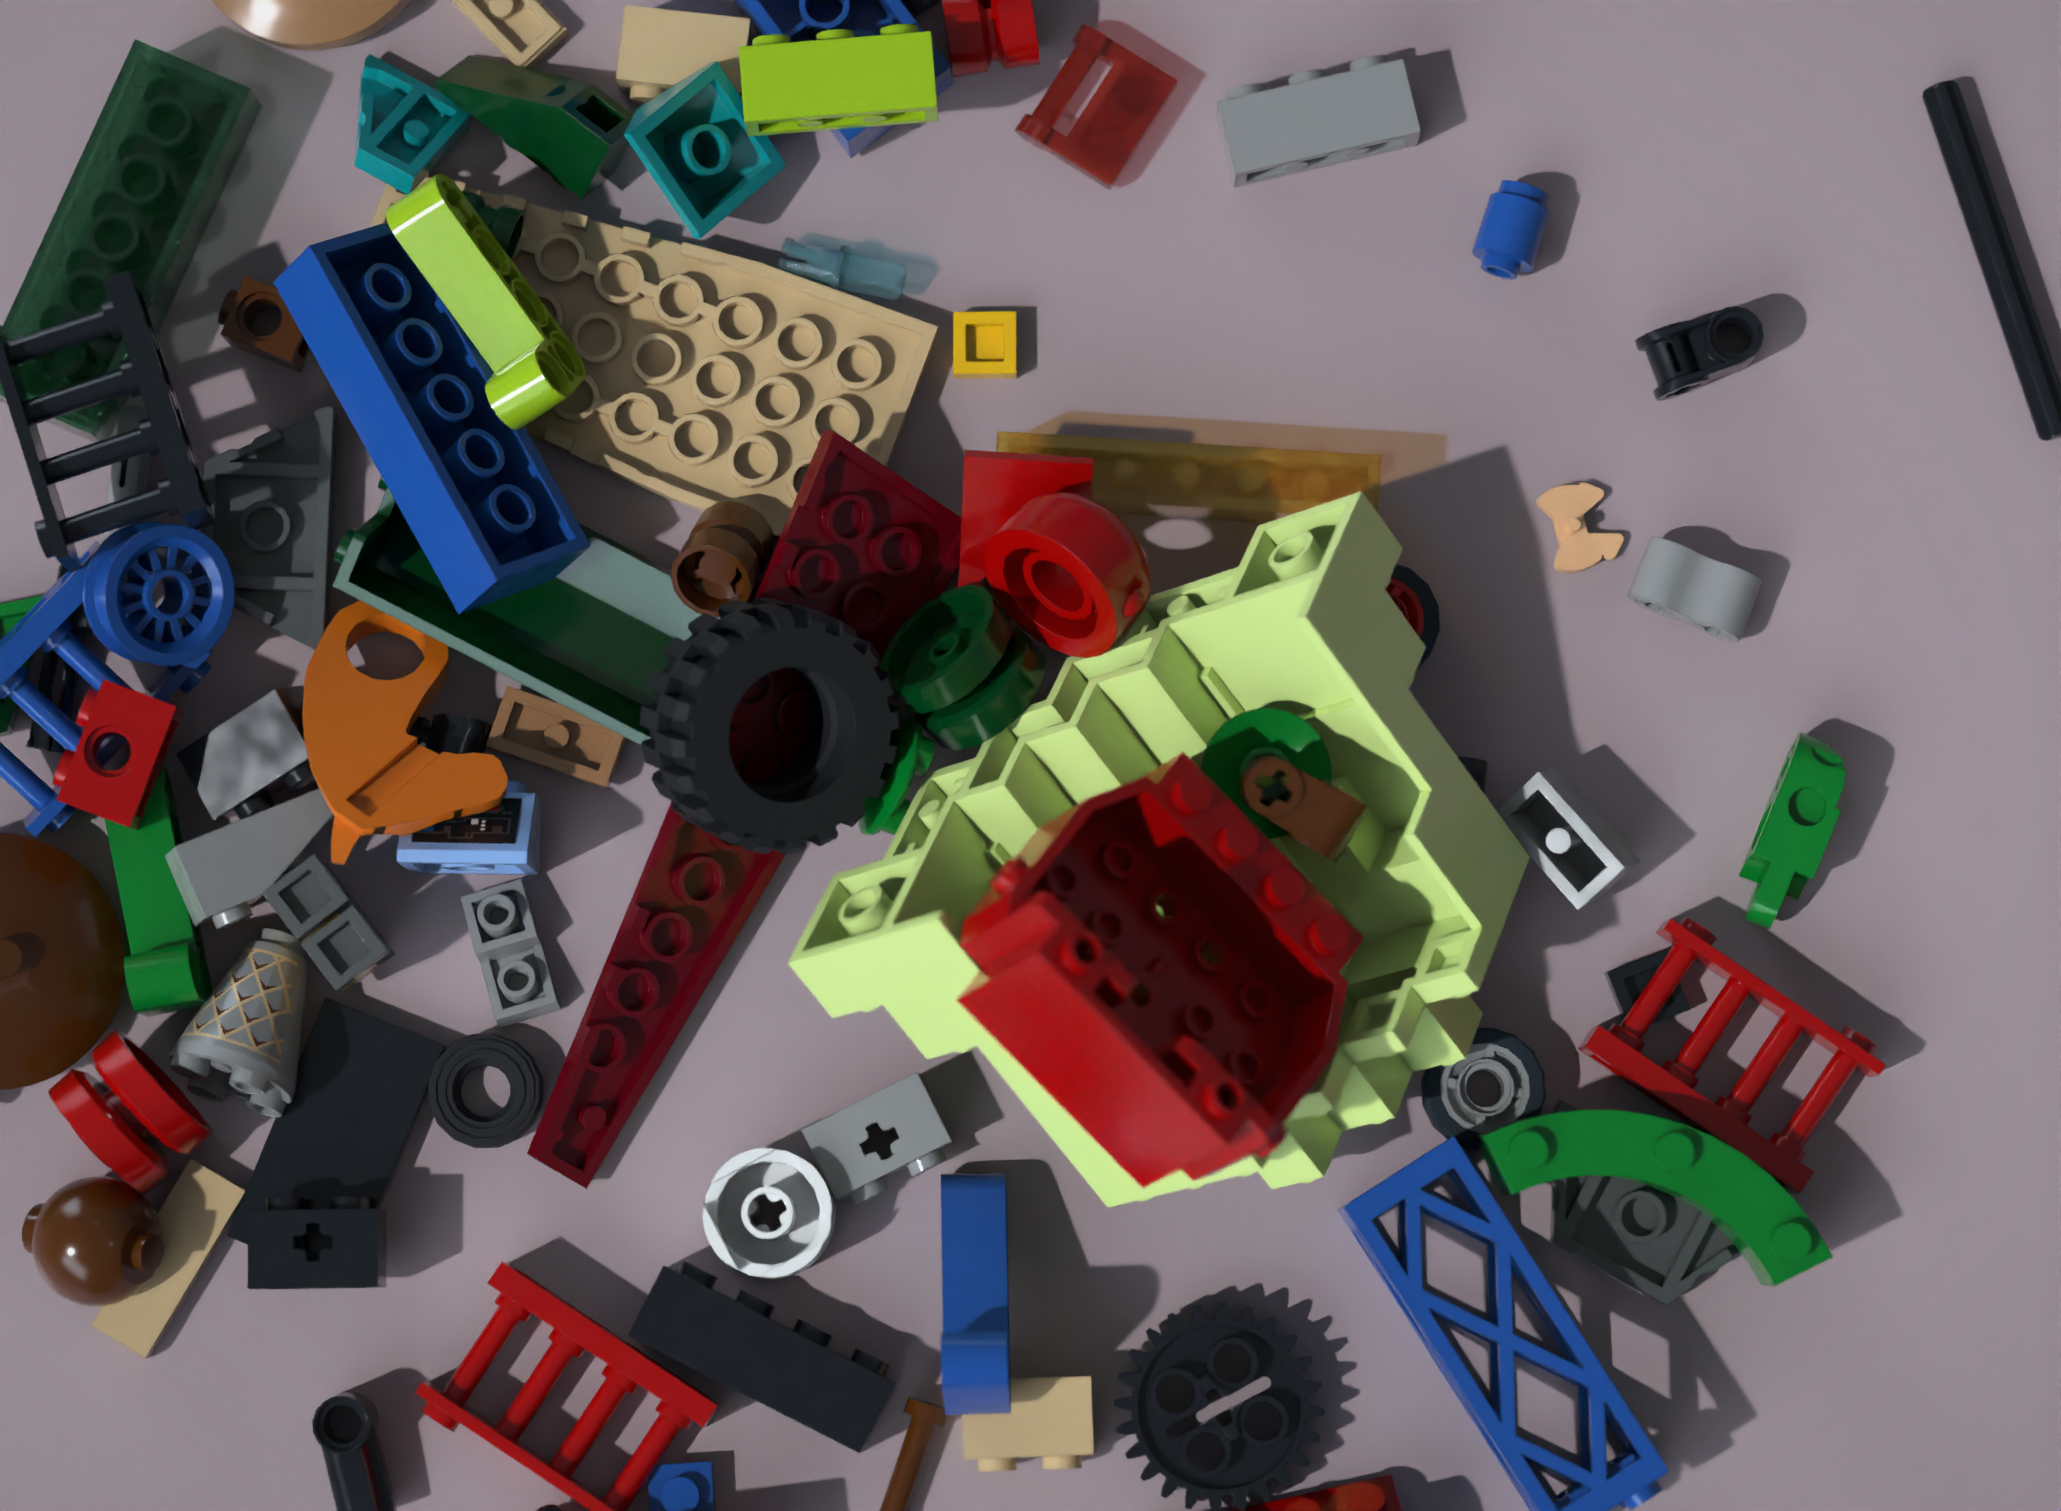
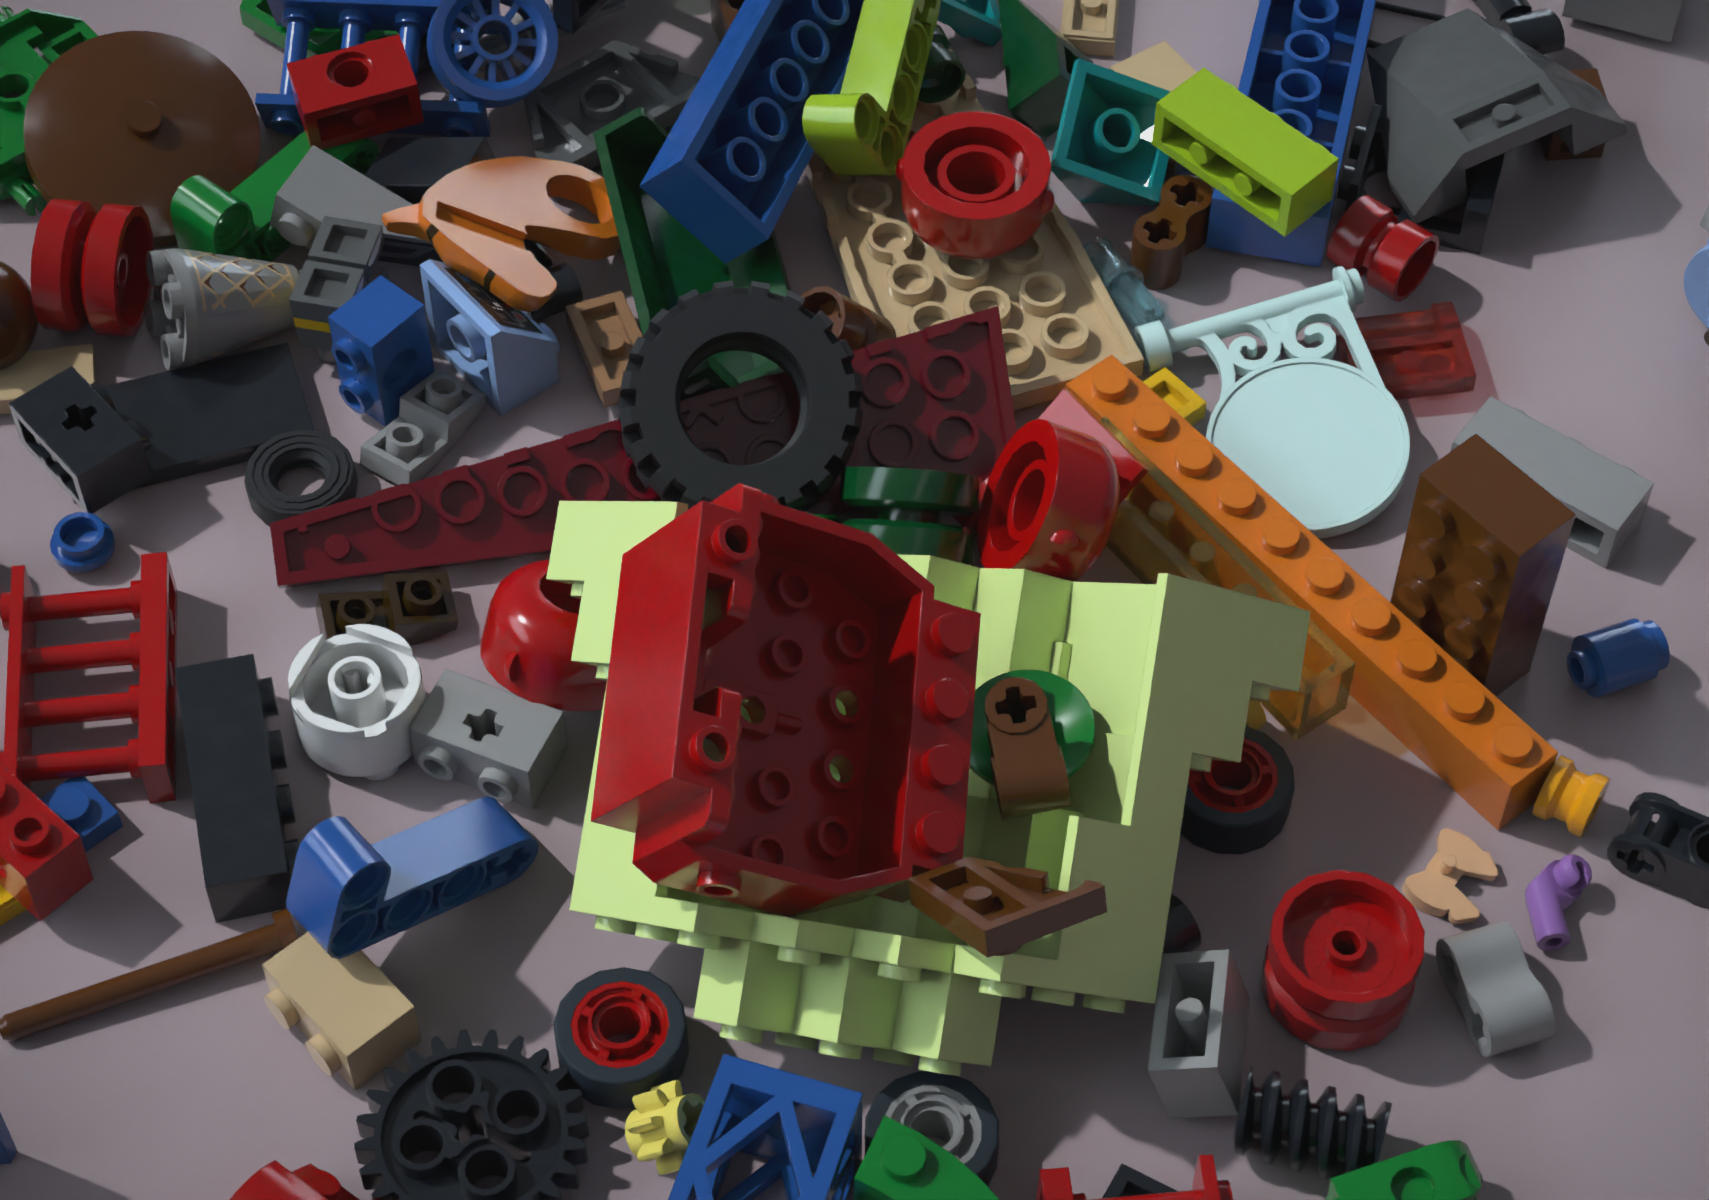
camera: 45 degrees right, 30 degrees down
(407, 1309) = (82, 542): none -> blue plate
(427, 942) = (380, 348): none -> blue brick
(653, 273) = (975, 184): none -> red piece
(682, 1122) = (409, 604): none -> dark brown slope
(823, 182) = (1171, 231): none -> reddish brown axle
(832, 1058) = (532, 641): none -> red piece
(1117, 268) = (1301, 426): none -> light aqua piece
(1256, 407) = (1398, 670): none -> orange brick
(1261, 1233) = (616, 1004): none -> wheel
(1326, 1265) = (663, 1125): none -> light yellow gear
(1401, 308) = (1482, 561): none -> reddish brown brick
(1428, 945) = (1001, 905): none -> reddish brown wing
(1595, 383) = (1571, 796): none -> light orange wheel
(1627, 666) = (1342, 960): none -> red wheel
(1653, 474) = (1551, 895): none -> medium lavender arm
(1695, 820) = (1309, 1126): none -> black piece

